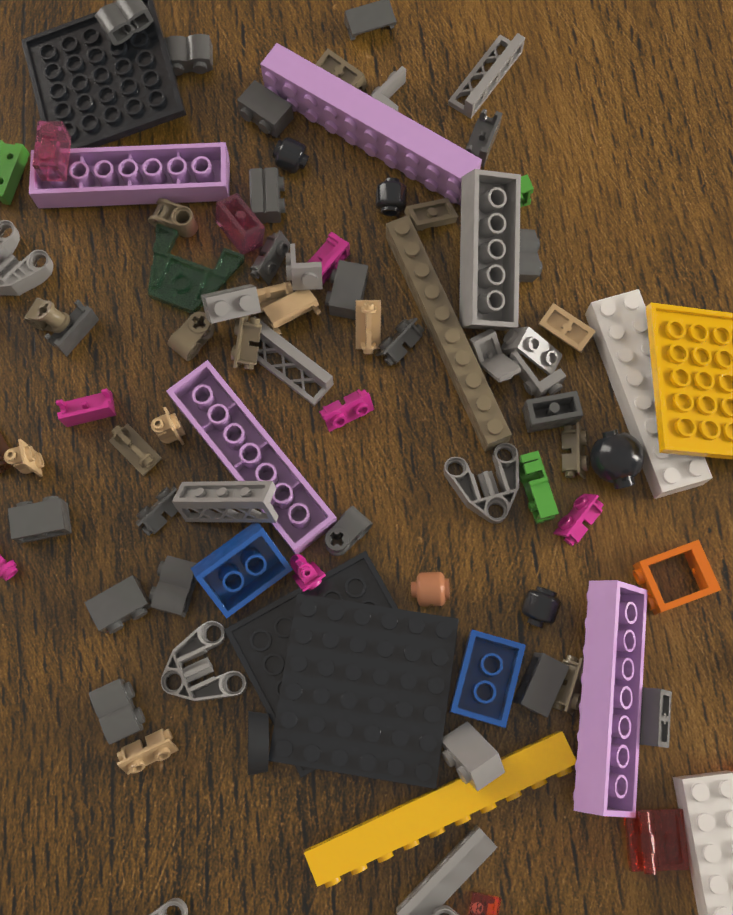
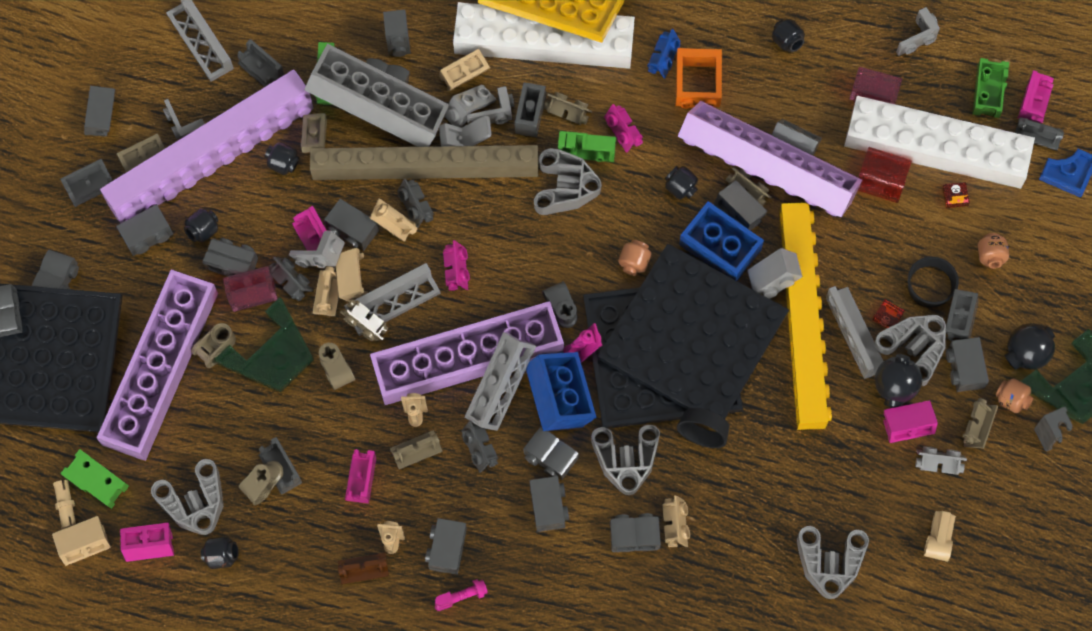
camera: 70 degrees left, 5 degrees down
(52, 151) = (114, 414): clear pink brick -> none
(231, 303) = (329, 315): light grey brick -> none
(294, 38) = (86, 182): none -> dark grey hinge
(575, 244) = (396, 33): none -> dark grey brick
(617, 458) = (589, 78): black brick -> none
(699, 528) = (663, 61): none -> blue hinge

